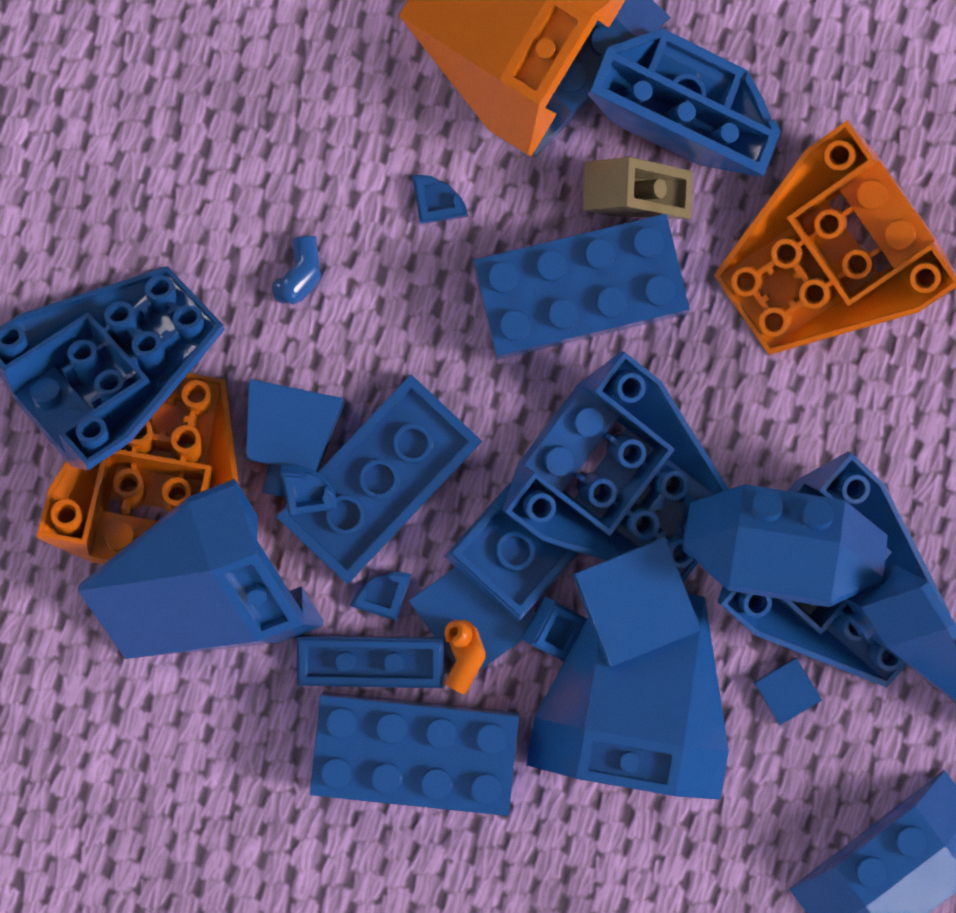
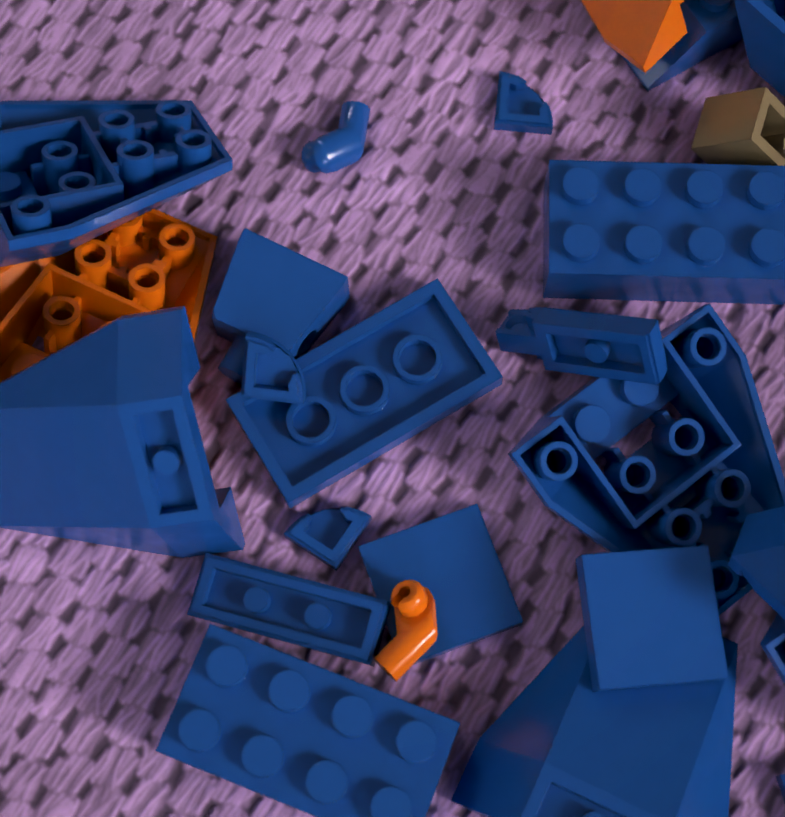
camera: 15 degrees right, 15 degrees down
(508, 559) = (499, 527): blue tile -> none
(537, 401) = (587, 343): none -> blue hinge
(554, 628) = (533, 630): blue tile -> none

